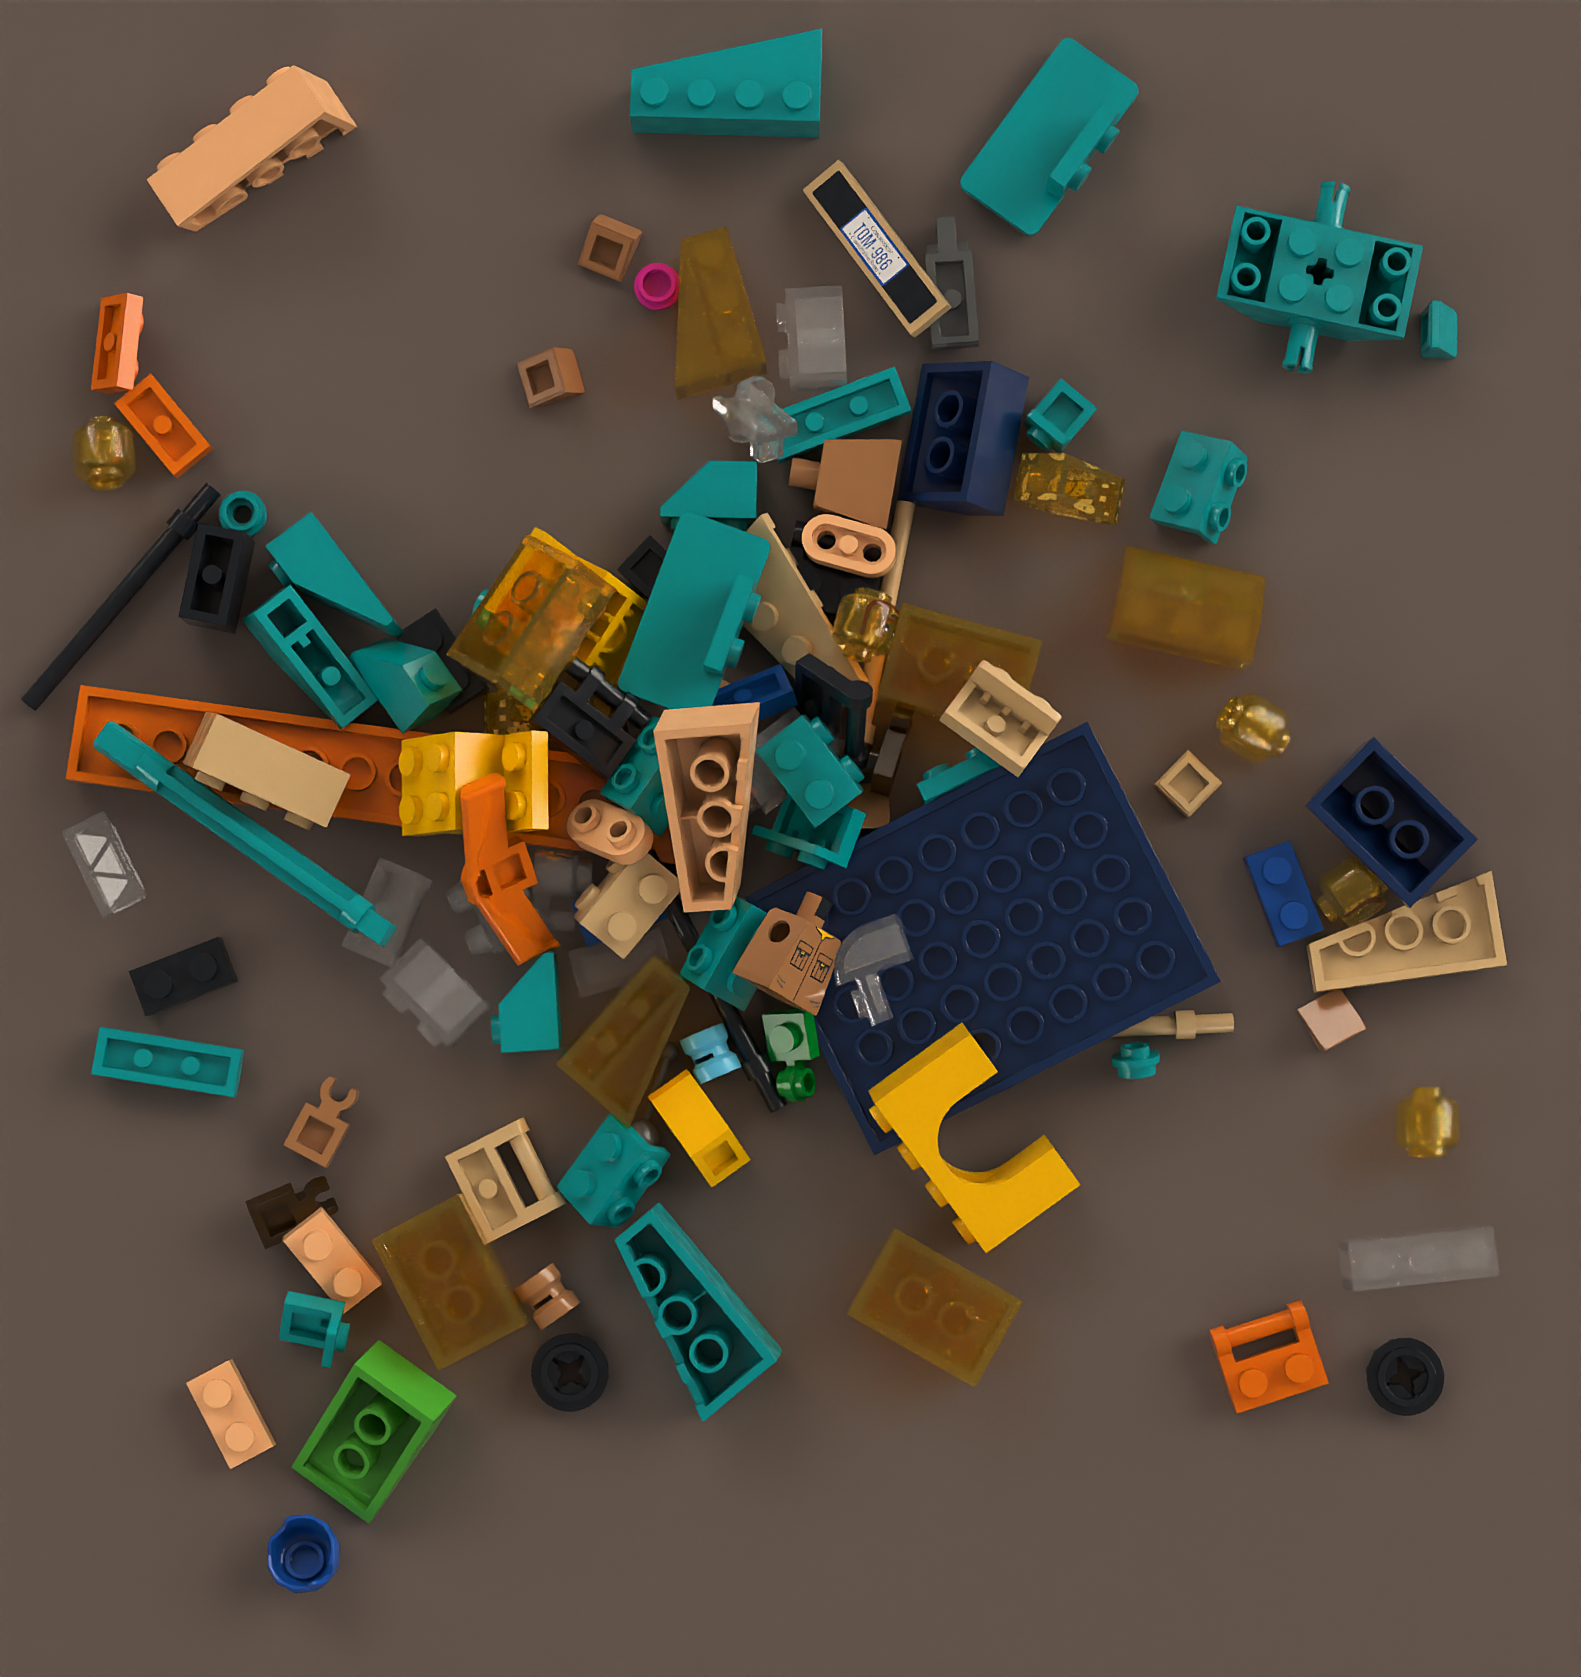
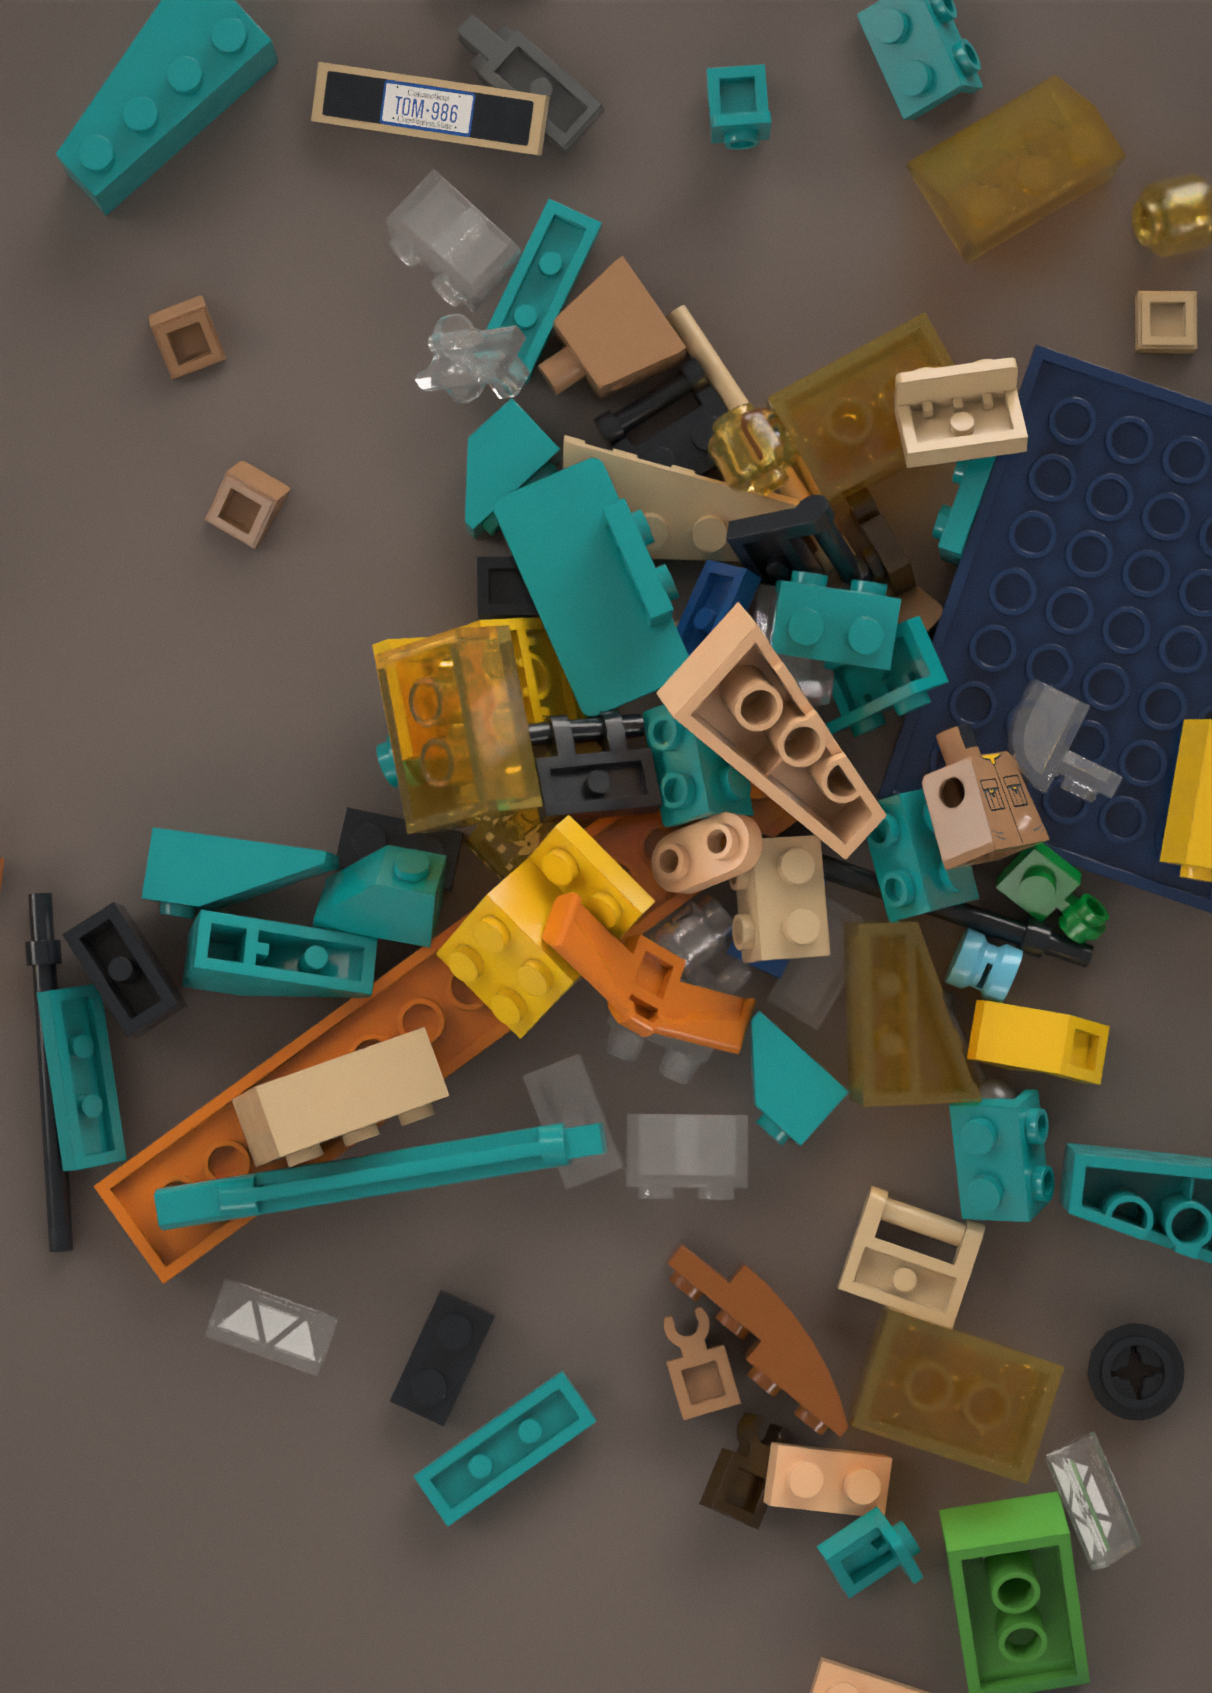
camera: 45 degrees left, 0 degrees up
(133, 616) = (81, 1077): none -> teal plate
(239, 500) = (74, 880): teal plate -> none
(378, 1164) = (783, 1350): none -> dark orange slope
(472, 1421) = (1093, 1500): none -> clear tile
(538, 1288) = (1050, 1323): medium nougat wheel -> none
(657, 286) = (264, 330): dark pink plate -> none
(715, 320) = (346, 306): clear yellow wedge -> none
(850, 545) = (665, 391): light nougat plate -> none
(963, 437) = (671, 203): dark blue slope -> none
(1069, 487) = (807, 159): clear yellow slope -> none

